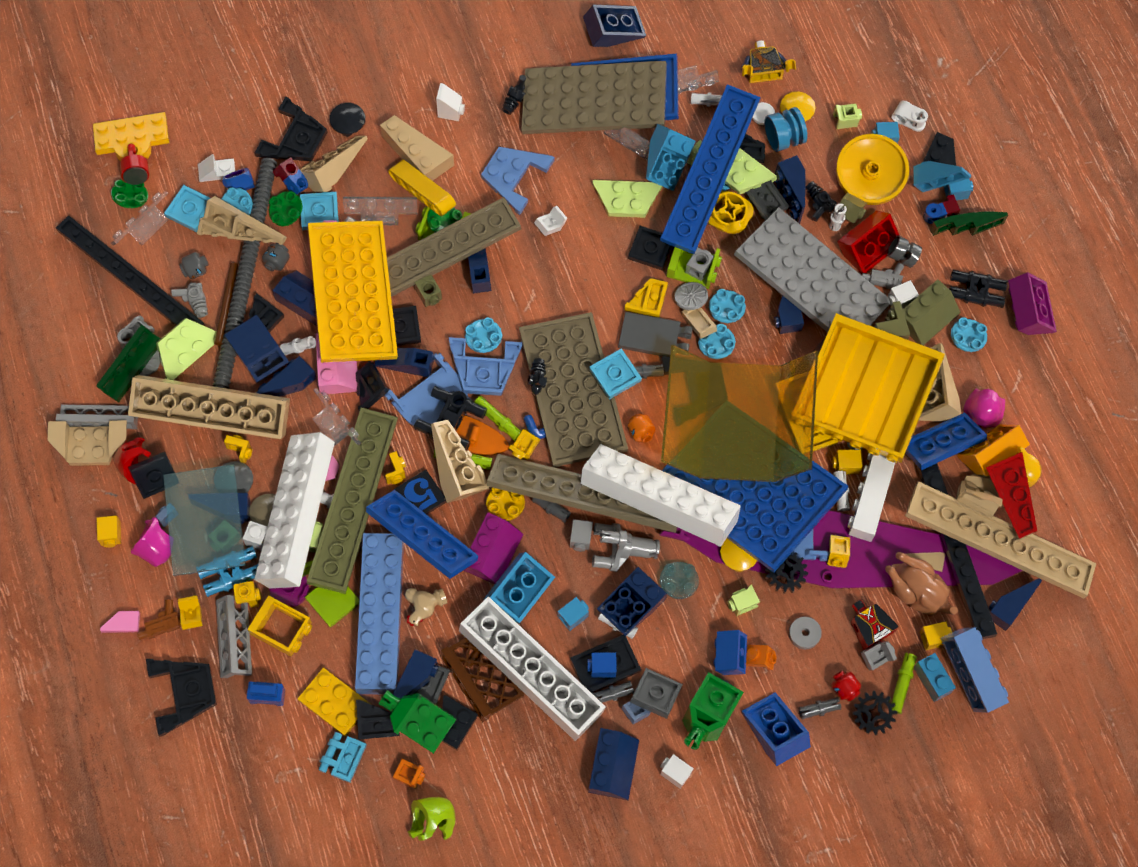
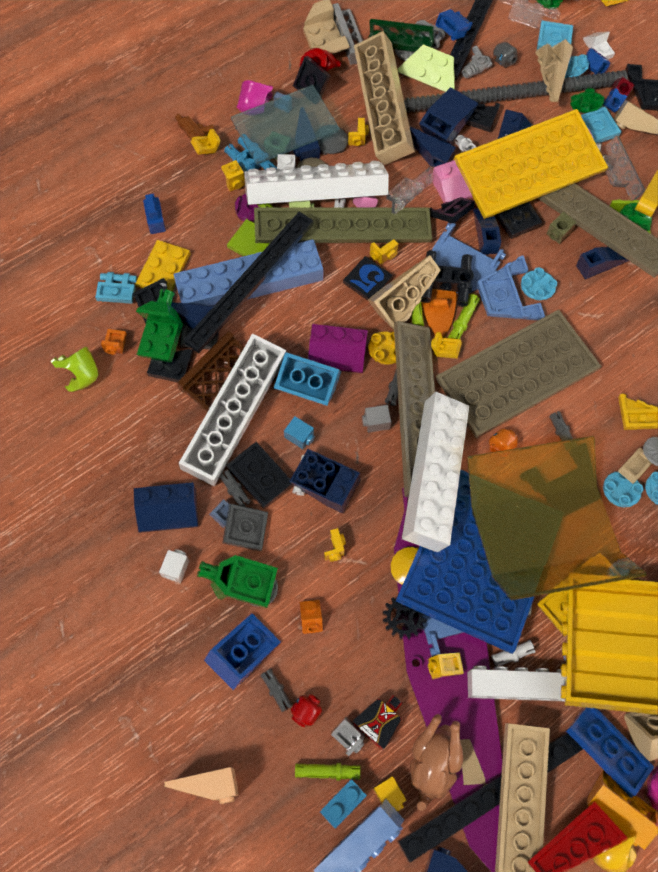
camera: 75 degrees right, 0 degrees up
(109, 531) = (256, 69): yellow brick -> none
(122, 622) = (186, 103): bright pink tile -> none
(139, 302) = (453, 24): none -> blue piece
(191, 690) = (143, 164): black wing -> none
(225, 303) = (480, 85): reddish brown piece -> none
(228, 637) = (191, 175): light grey fence -> none
(263, 616) = (215, 193): yellow window -> none
(275, 257) = (539, 107): dark grey head -> none
(398, 610) = (248, 282): none -> black plate
(422, 534) = (326, 282): blue plate -> none
(424, 604) = (269, 309): tan animal -> none
(532, 428) = (465, 349): blue arm -> none
(536, 377) = (512, 336): black piece -> none
(602, 665) = (254, 468): blue brick -> none
(615, 373) = (546, 401): medium azure plate -> none
(622, 546) = (378, 455): light grey wheel -> none
(652, 334) = (603, 421): dark grey tile -> none
(679, 580) = (364, 519): clear light blue dish -> none
(696, 610) = (338, 541): none -> yellow bracket
(730, 652) = (304, 585): blue brick -> none
(743, 601) = (362, 584): yellowish green window -> none
(811, 627) = (350, 665): light grey piece -> none
(848, 461) = (547, 651): yellow brick -> none
(887, 718) = (285, 738): black gear -> none
(893, 782) = (213, 785): none -> light nougat slope
(979, 494) = (561, 802): tan piece -> none

